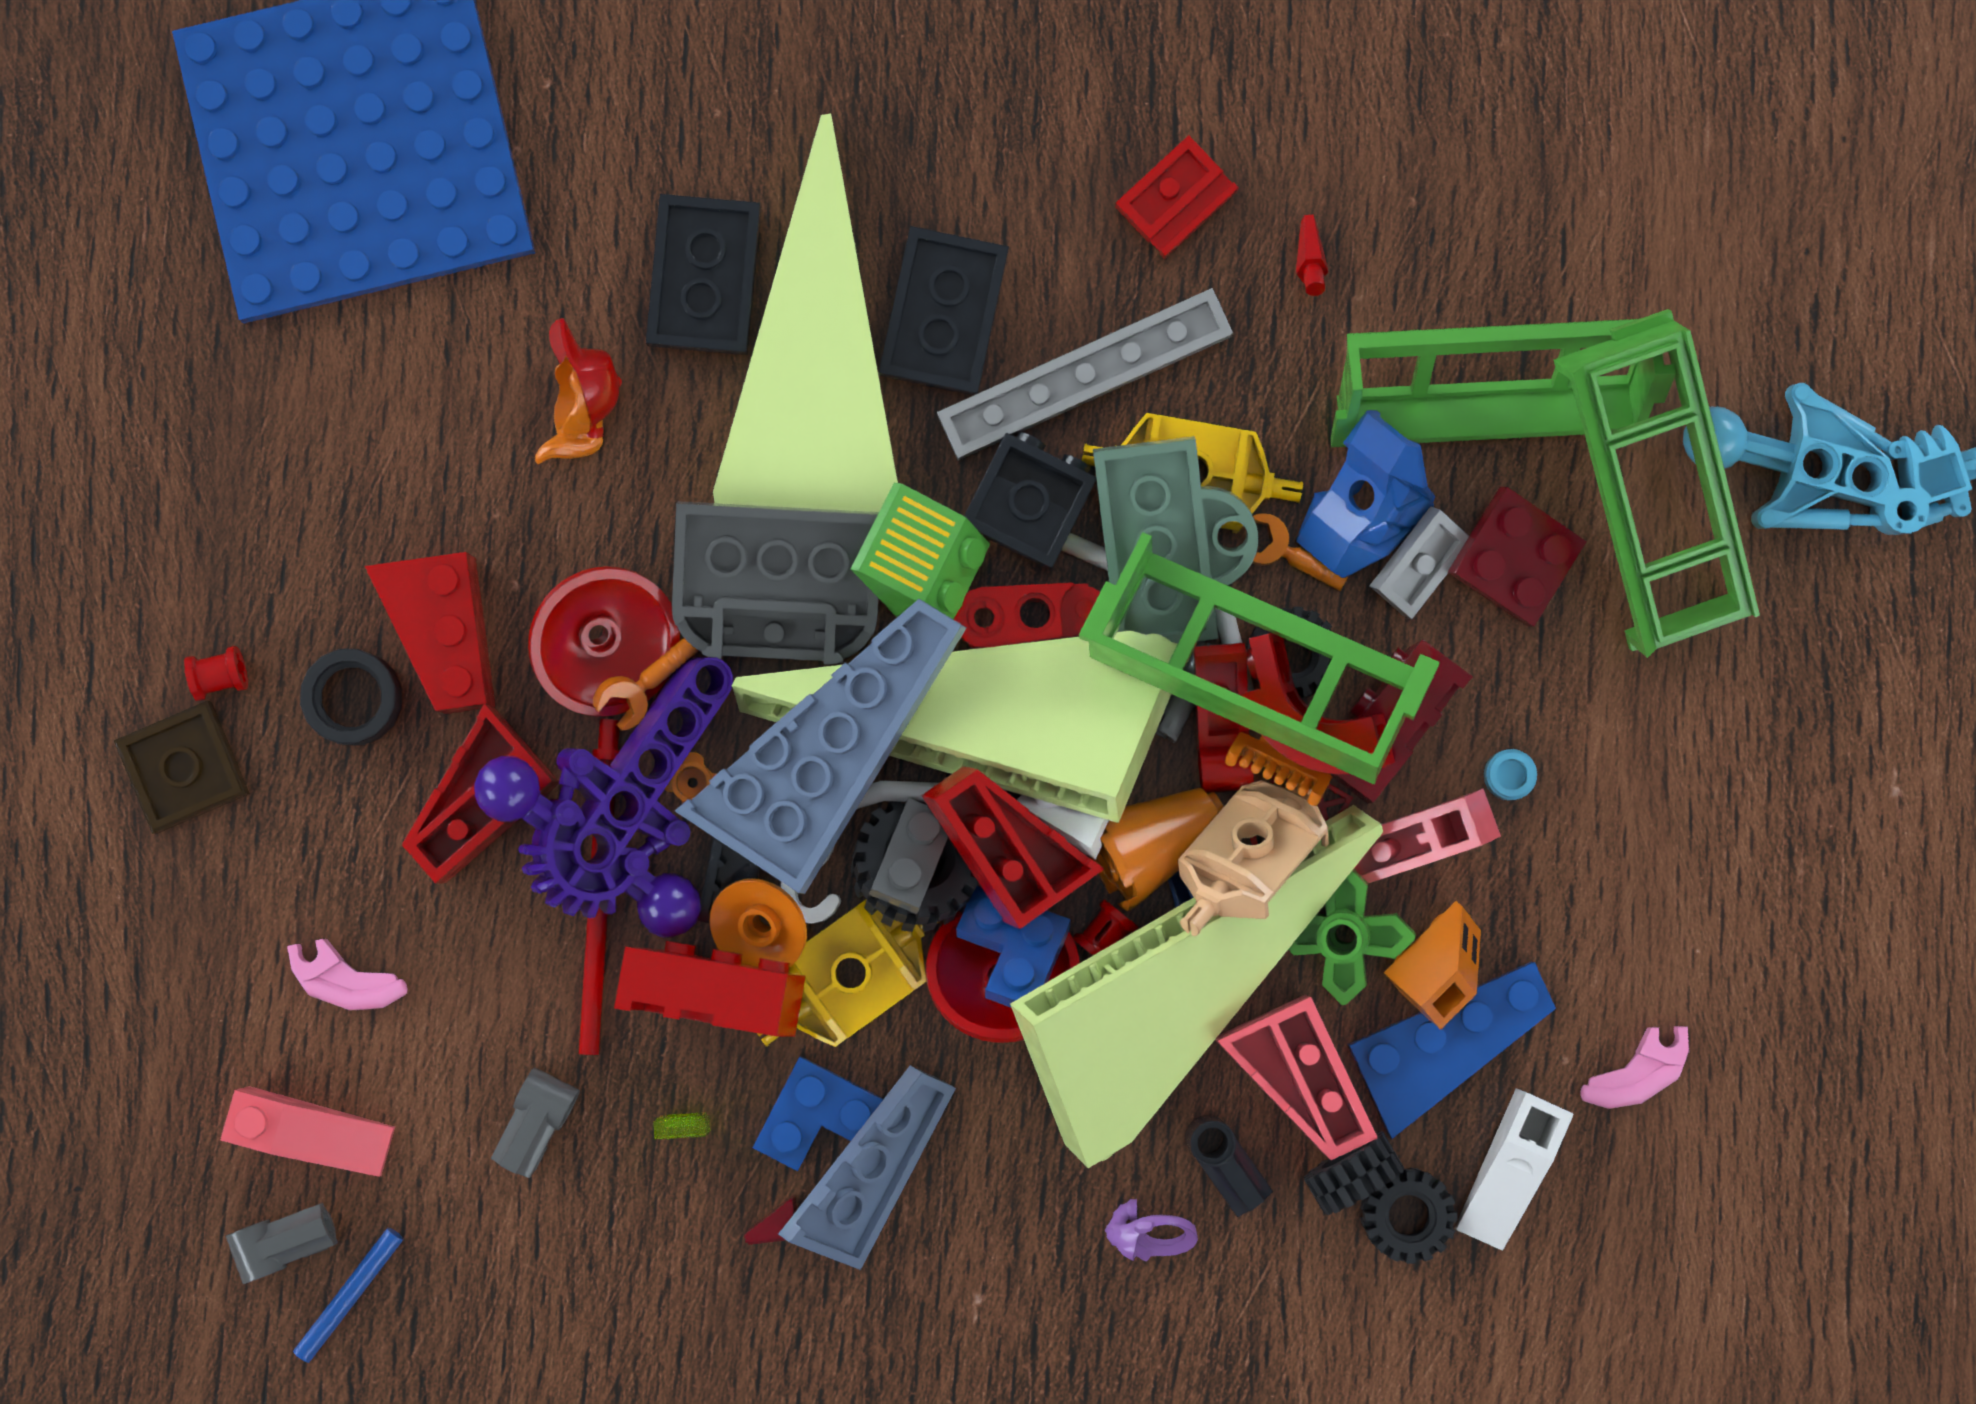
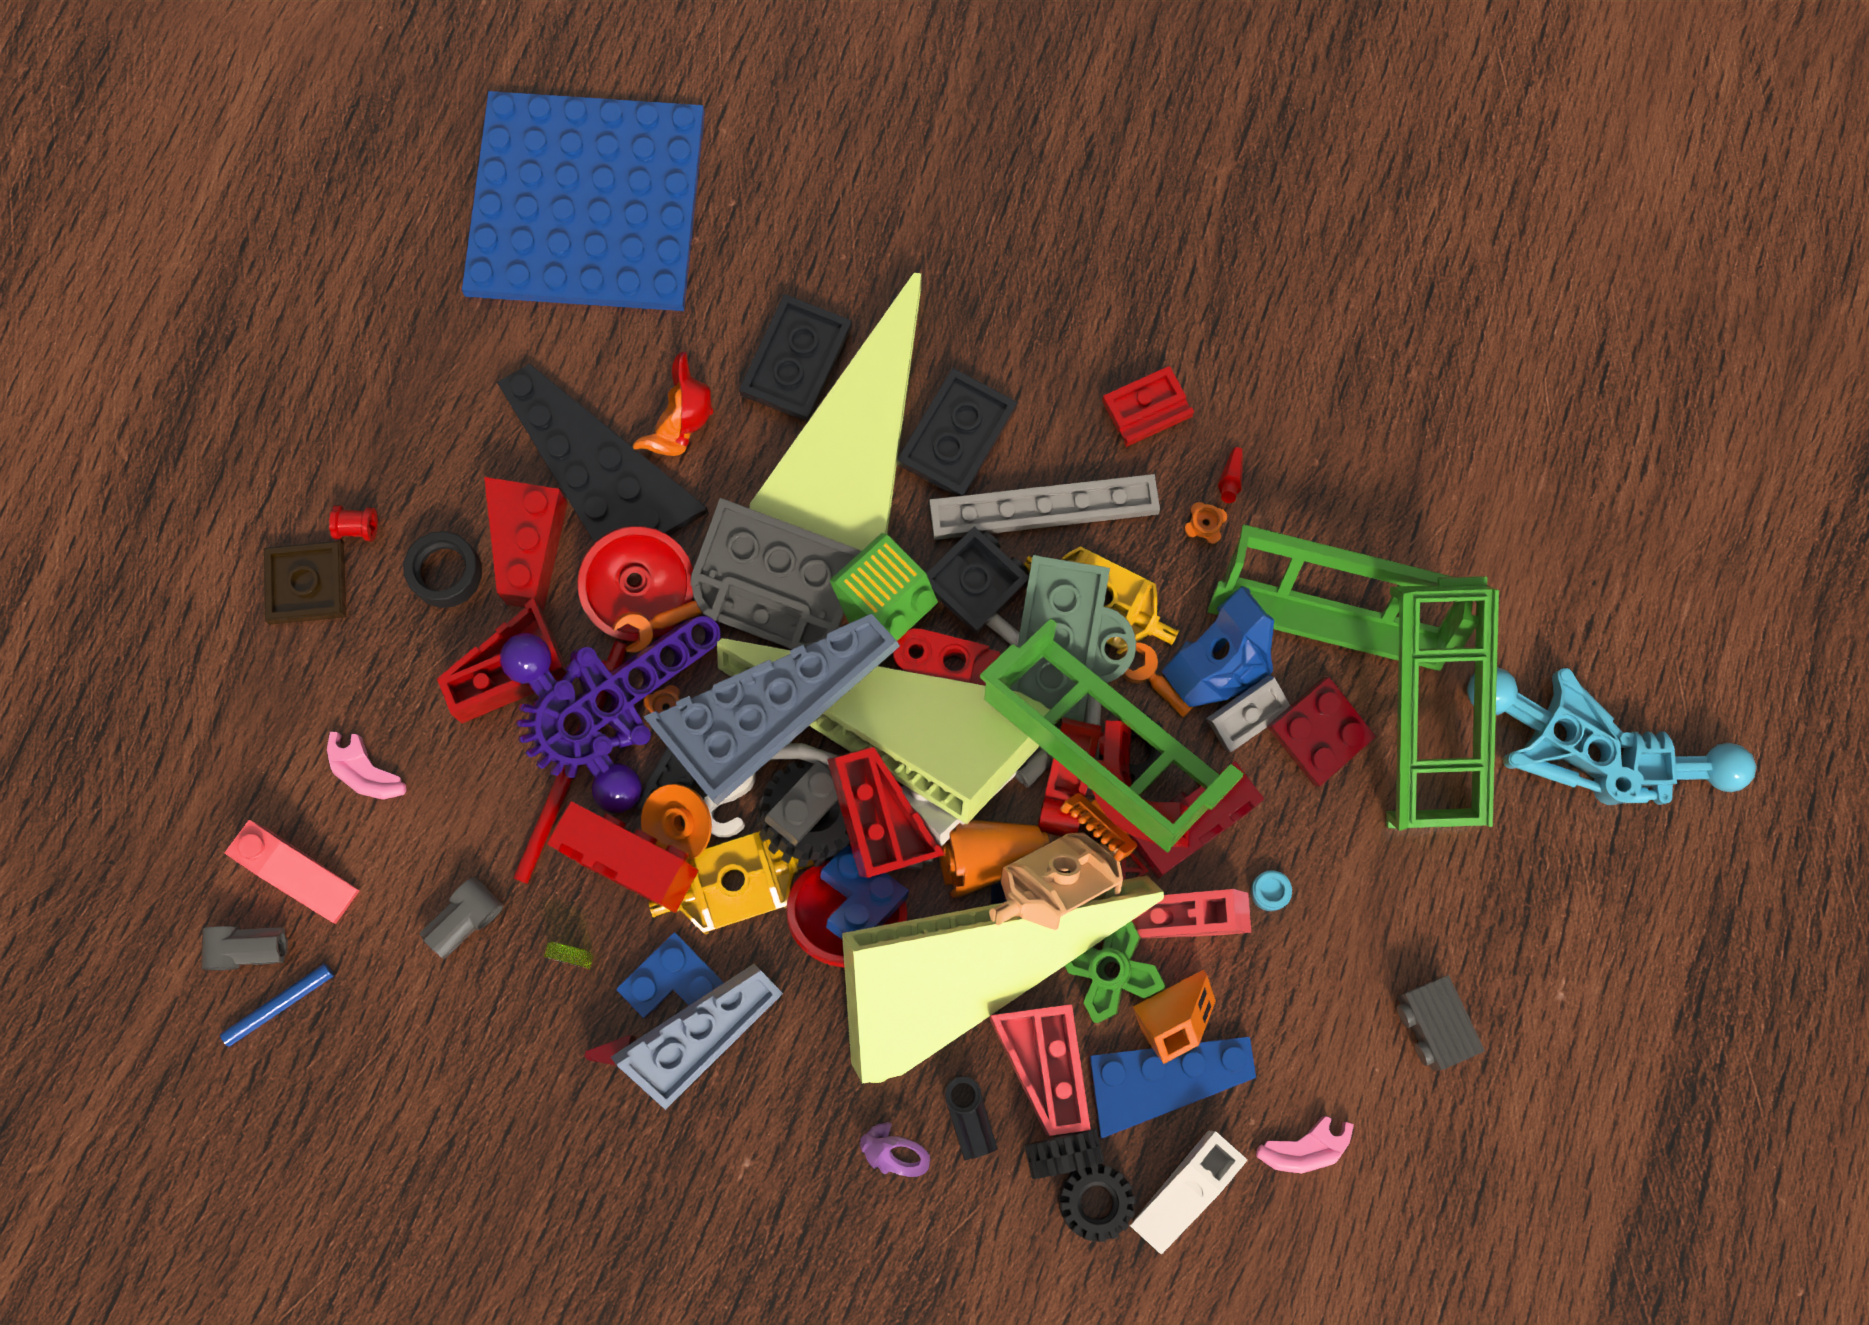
camera: 15 degrees right, 10 degrees down
(503, 507) = (594, 466): none -> black wing
(1105, 929) = (934, 905): red bush -> none
(1305, 318) = (1214, 515): none -> orange plate
(1758, 875) = (1439, 1024): none -> dark grey brick

